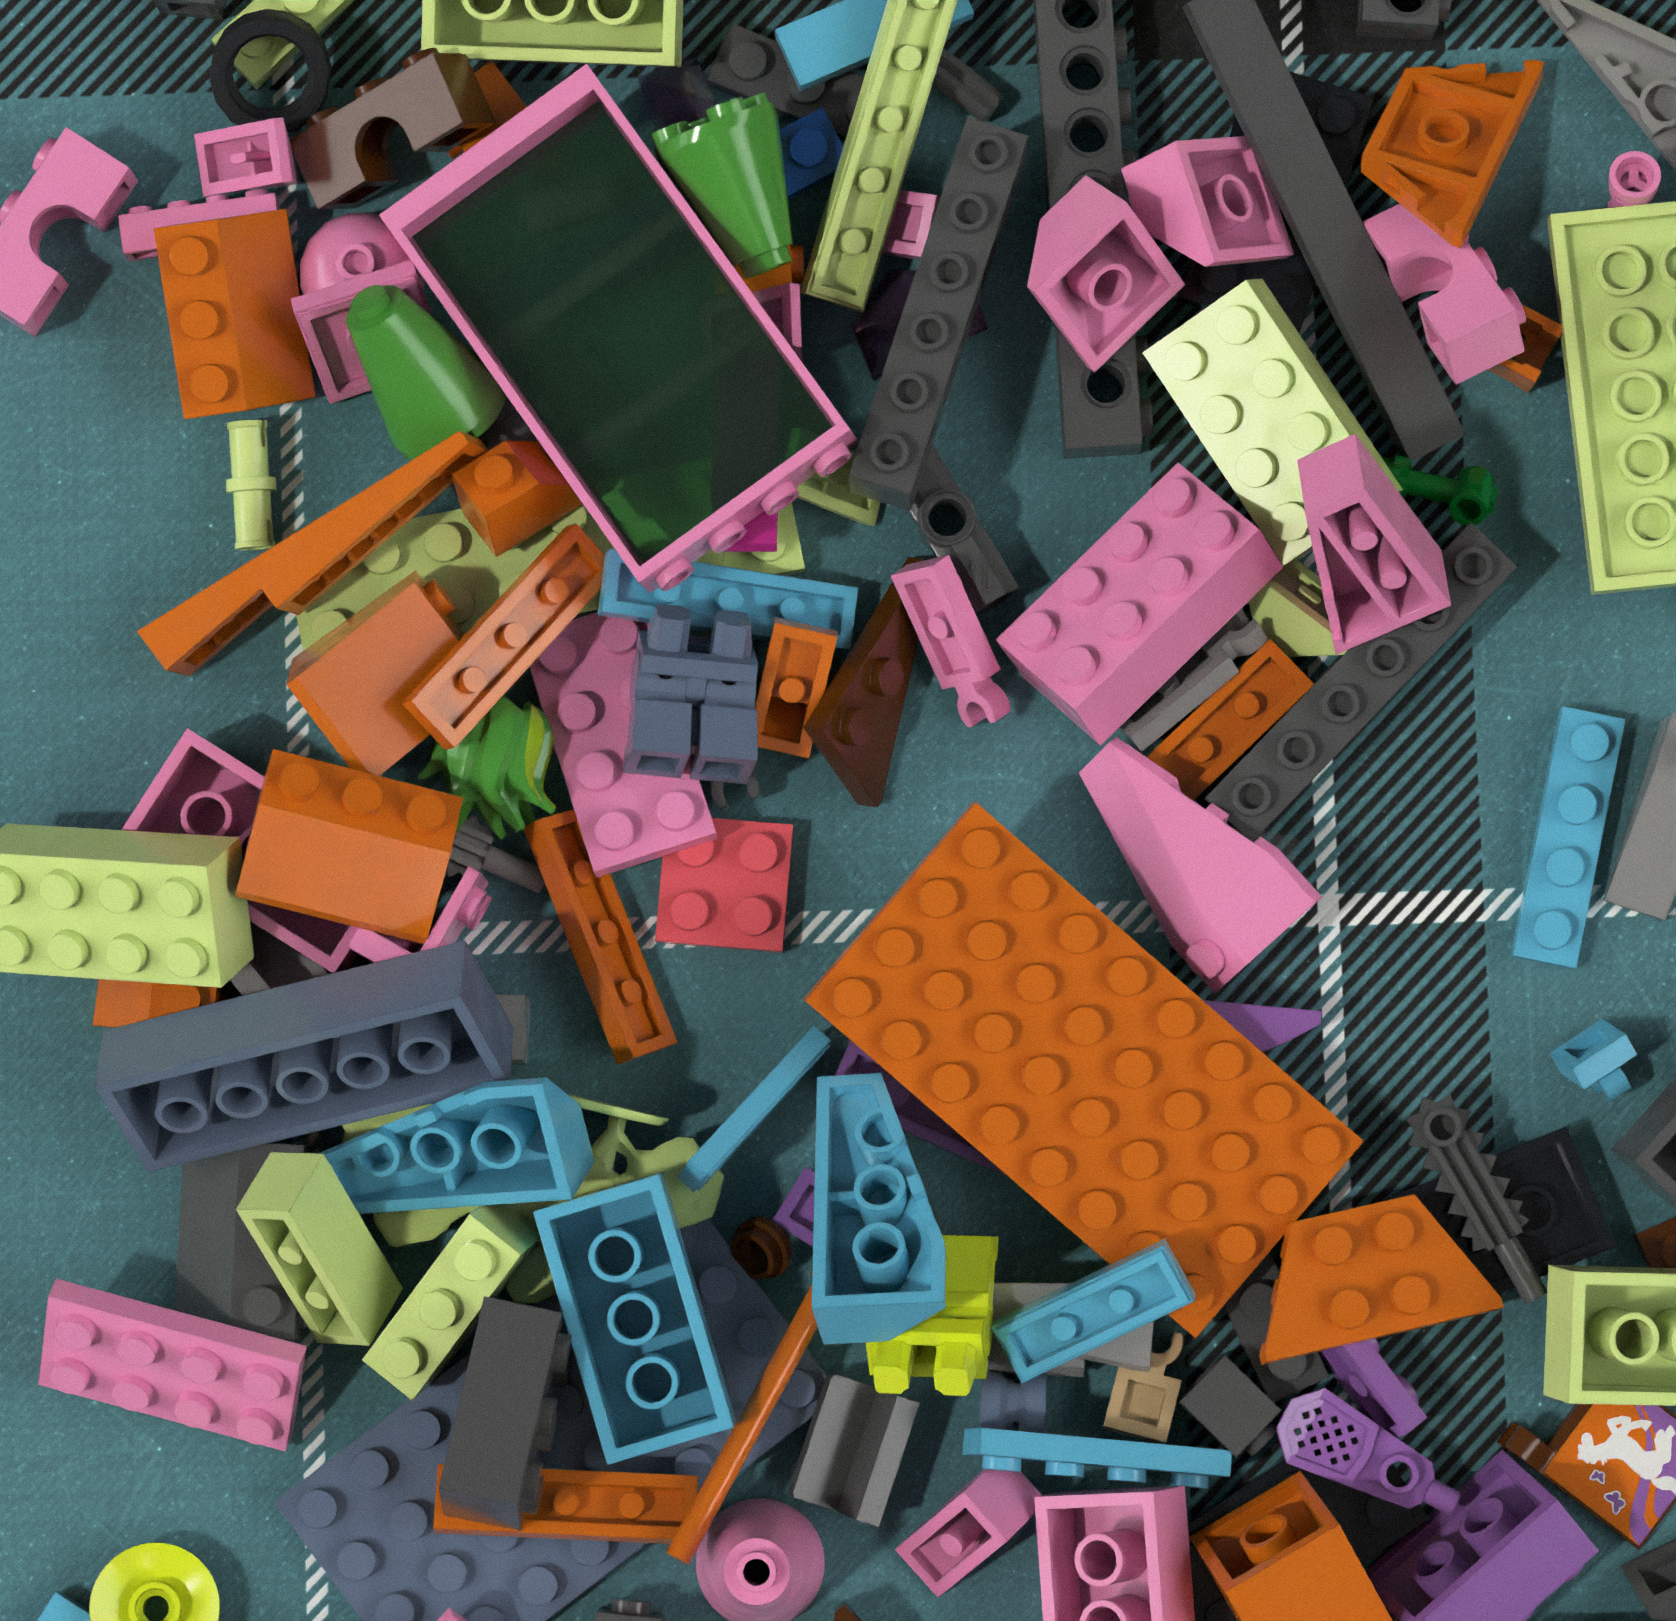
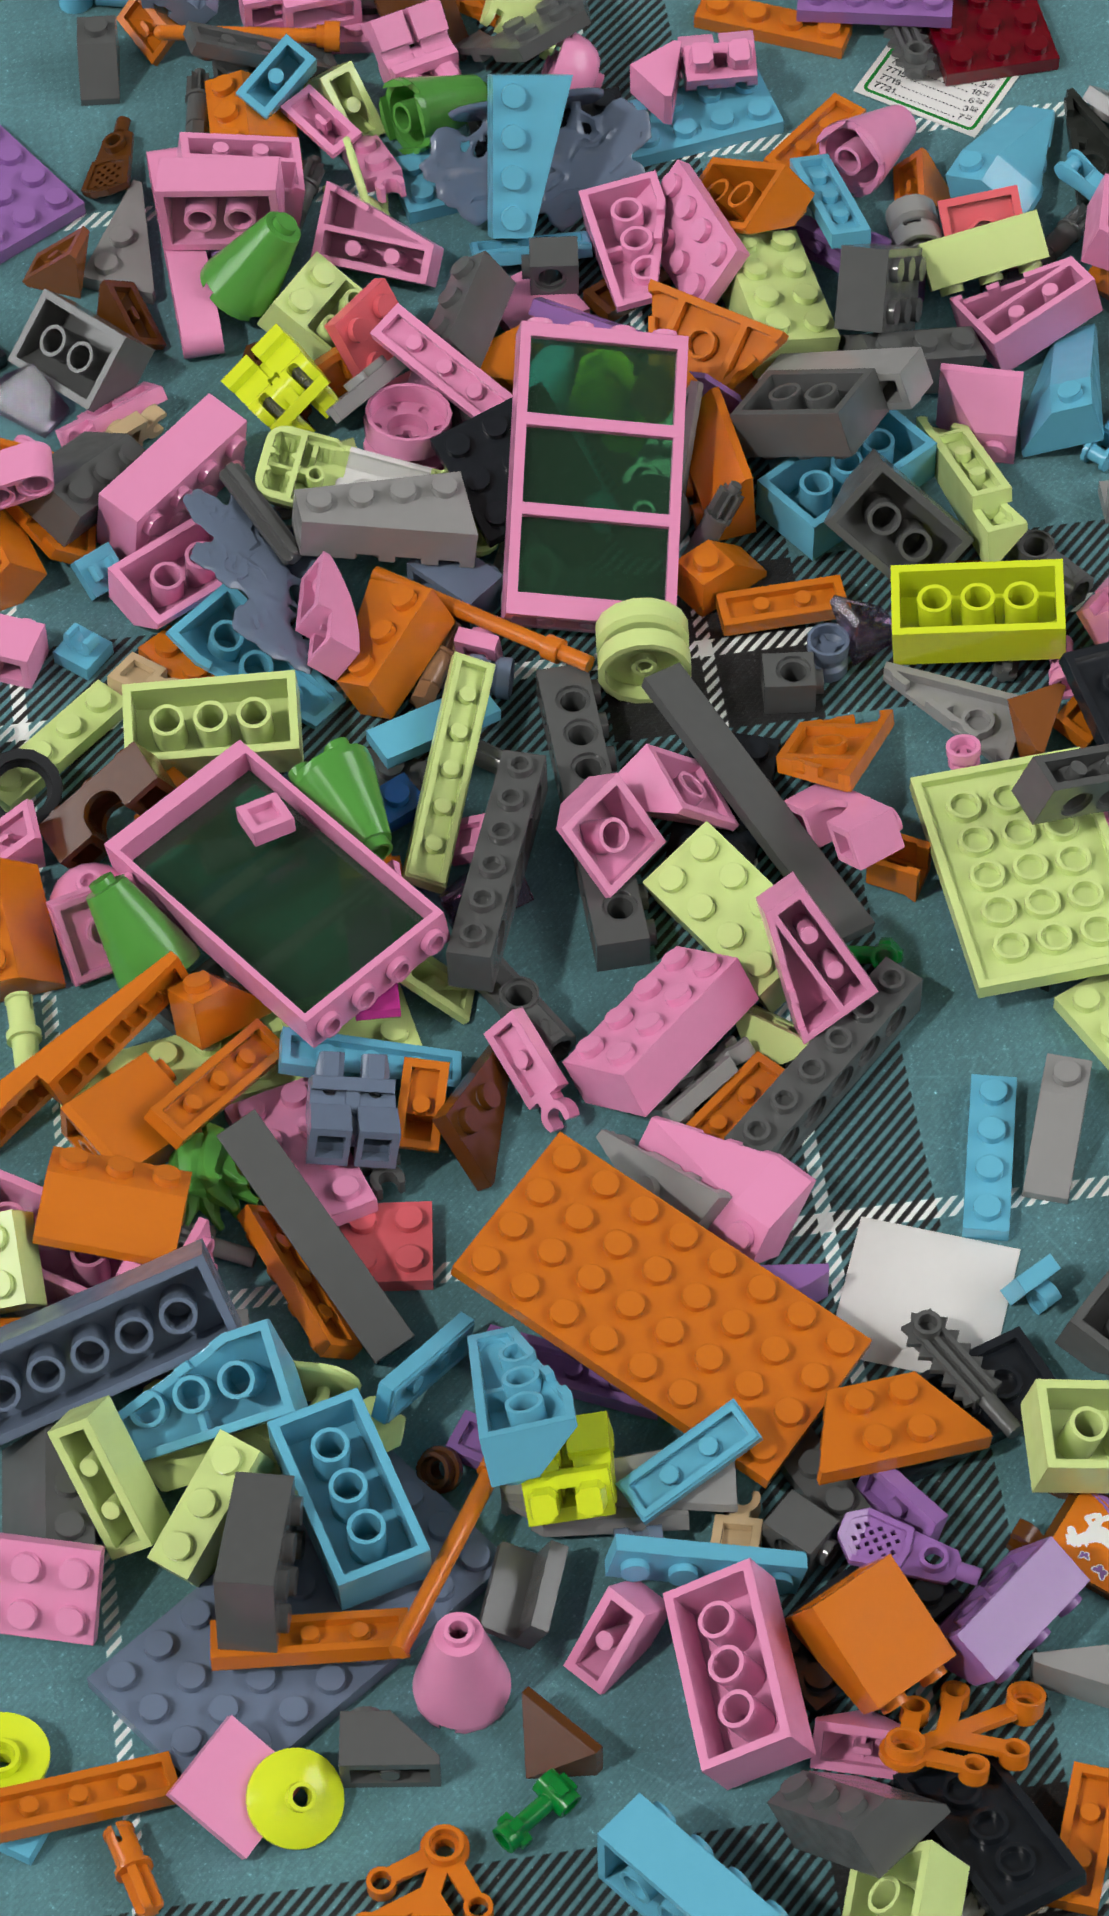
camera: 10 degrees left, 30 degrees down
(612, 216) = (265, 819): none -> bright pink plate
(627, 897) = (316, 1237): none -> dark grey slope
(1108, 849) = (664, 1178): none -> light grey wing
(1440, 1021) = (918, 1269): none -> white sticker

